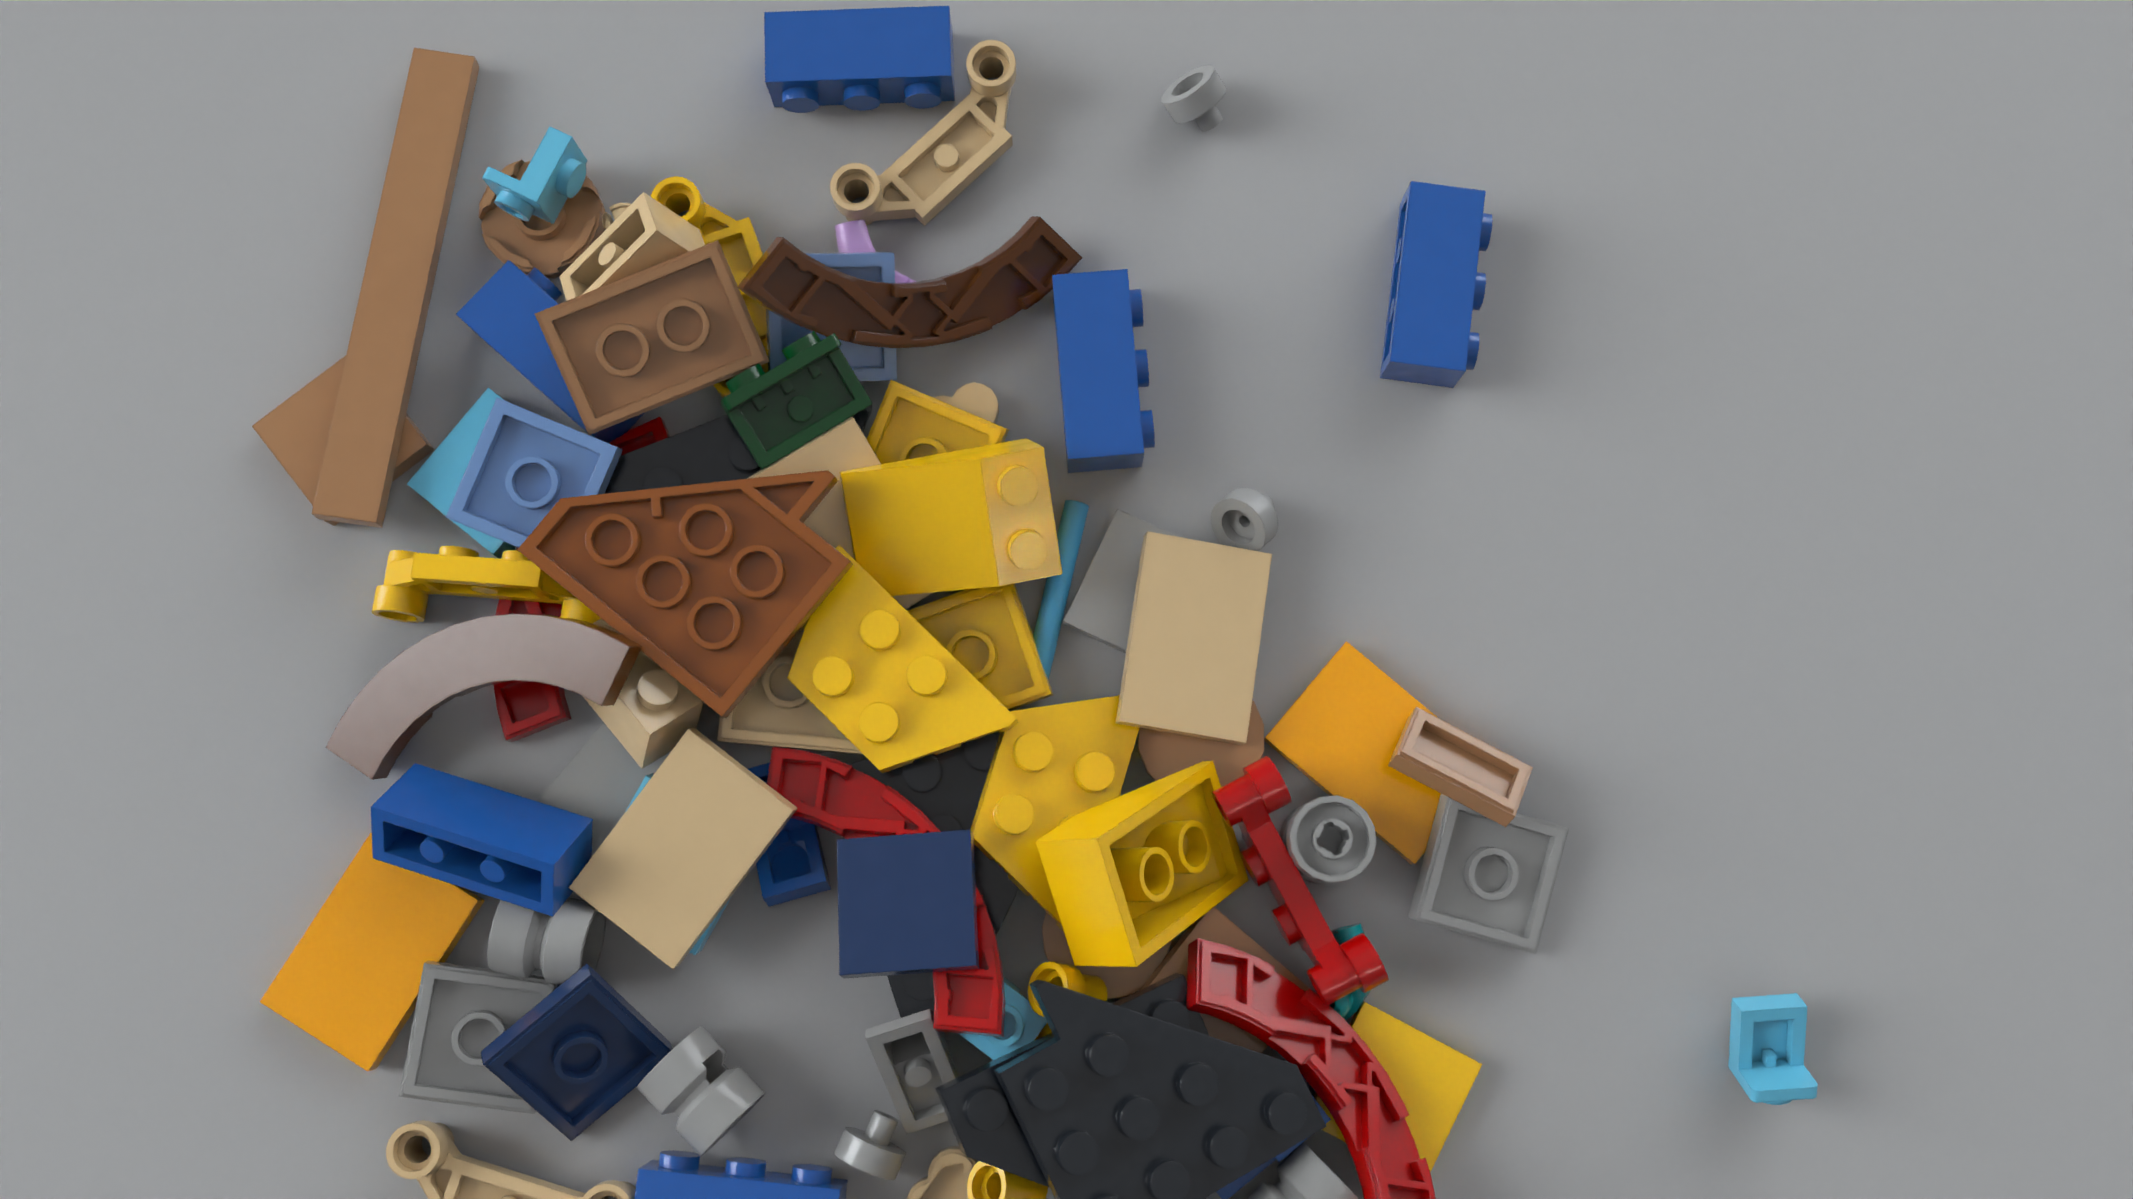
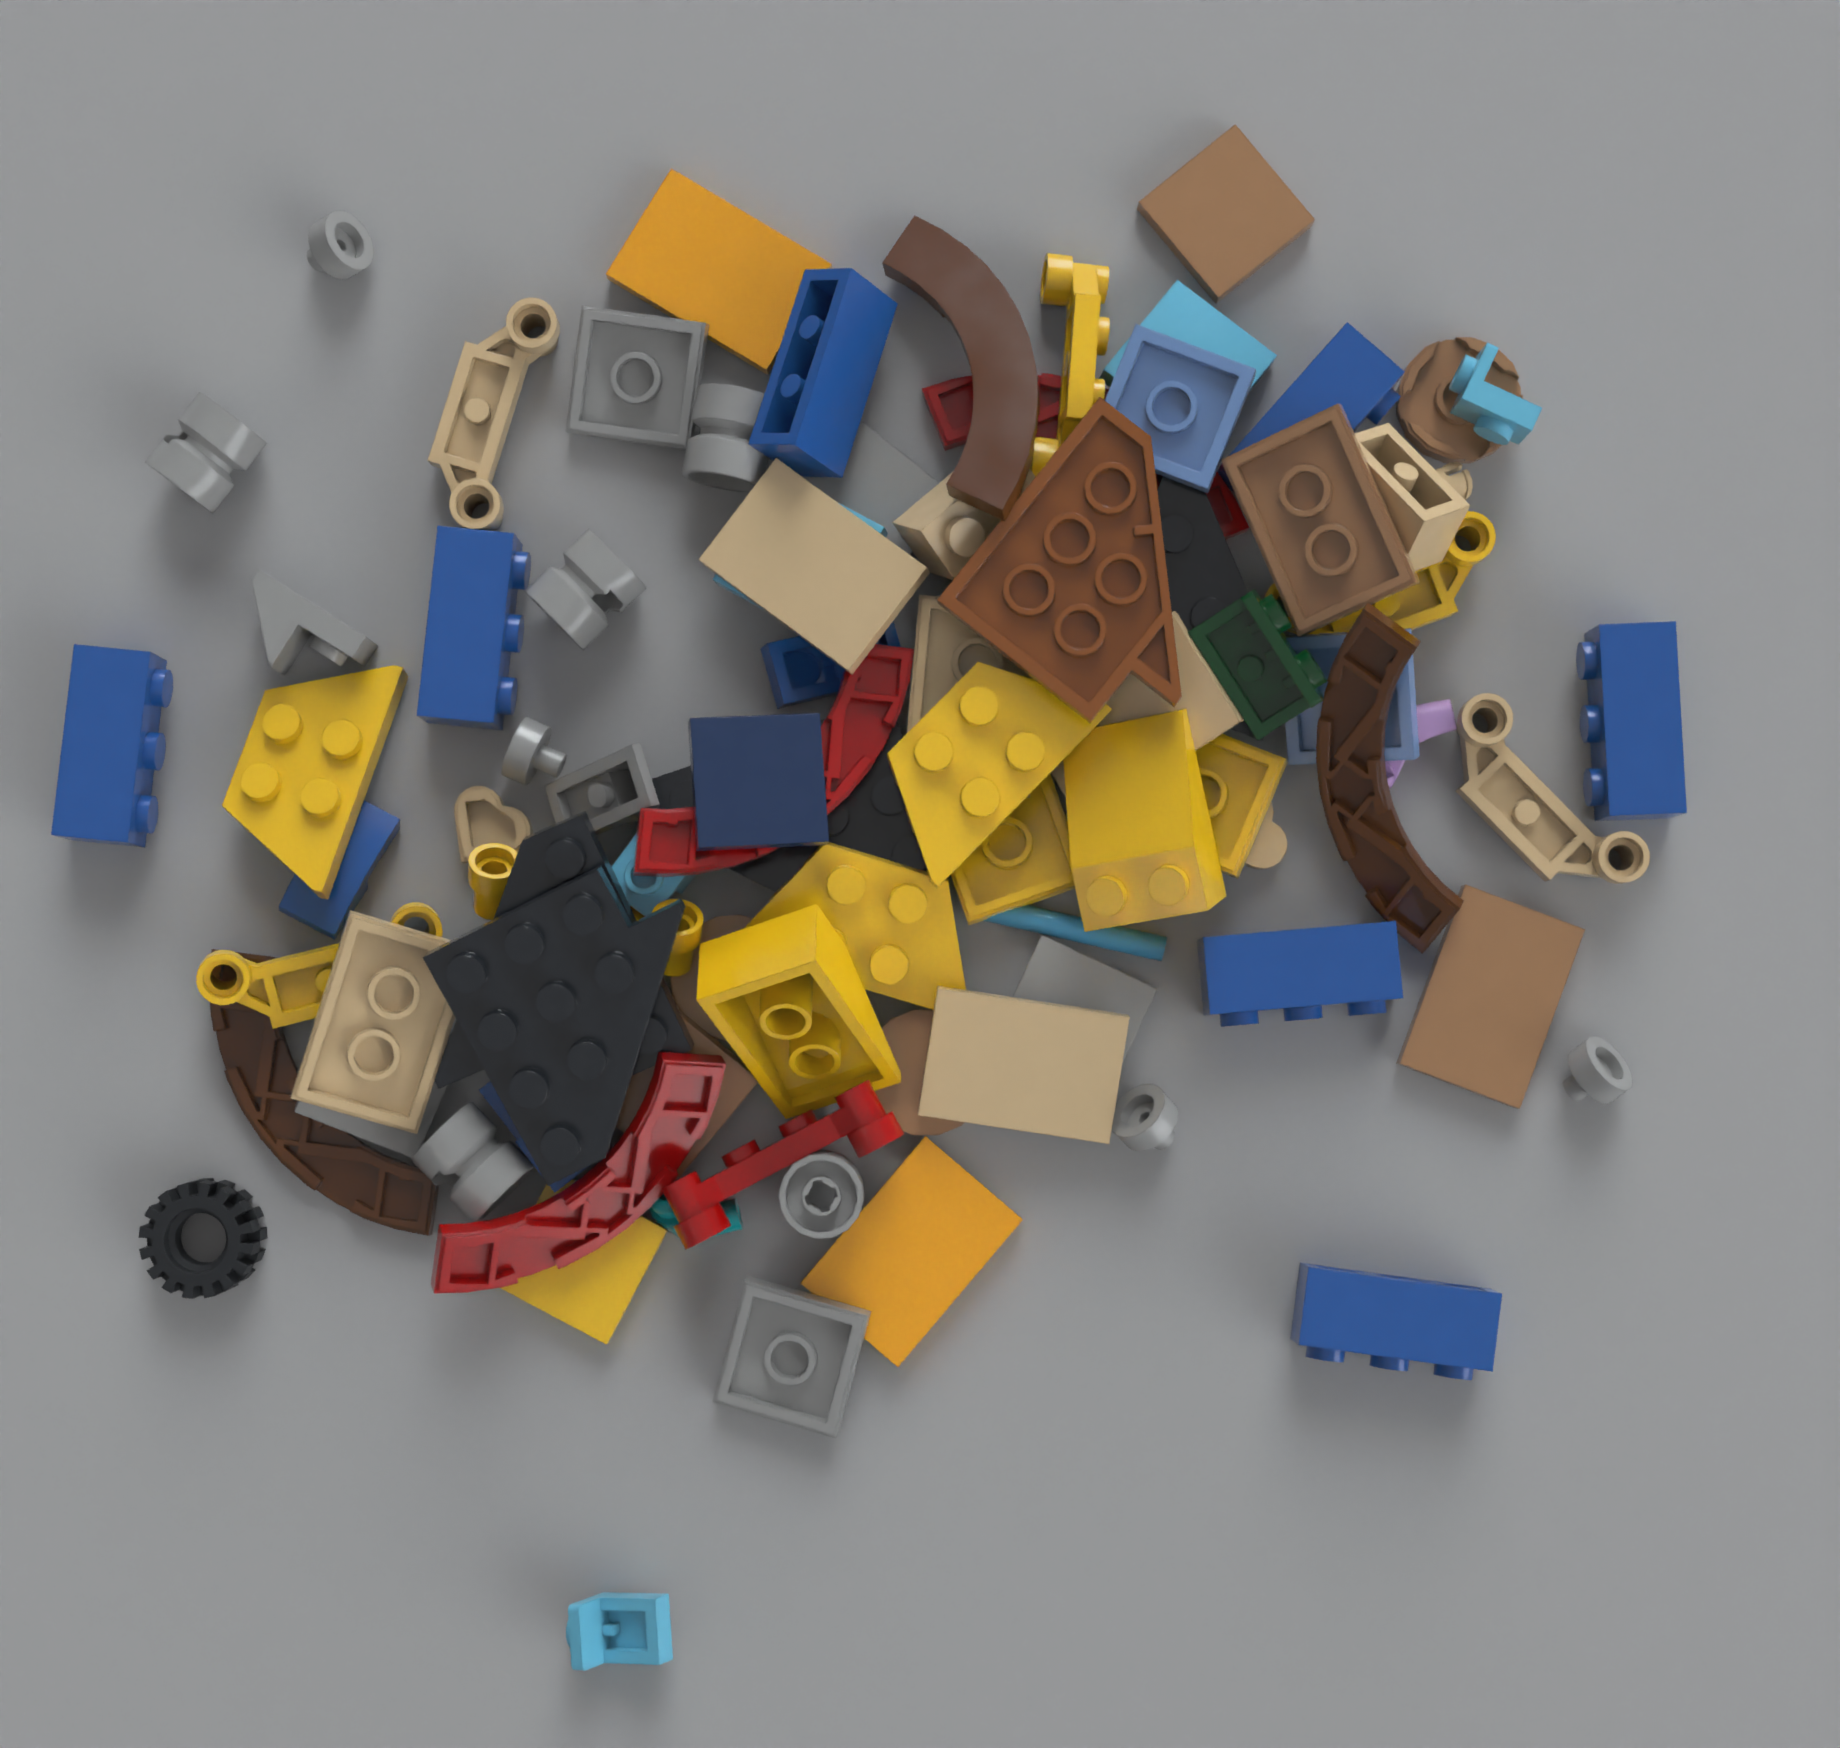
camera: 90 degrees right, 5 degrees up
(396, 290) = (1383, 260): medium nougat tile -> none
(576, 1052) = (621, 471): dark blue tile -> none
(1124, 195) = (1490, 997): none -> medium nougat tile
(1461, 766) = (894, 1329): medium nougat tile -> none

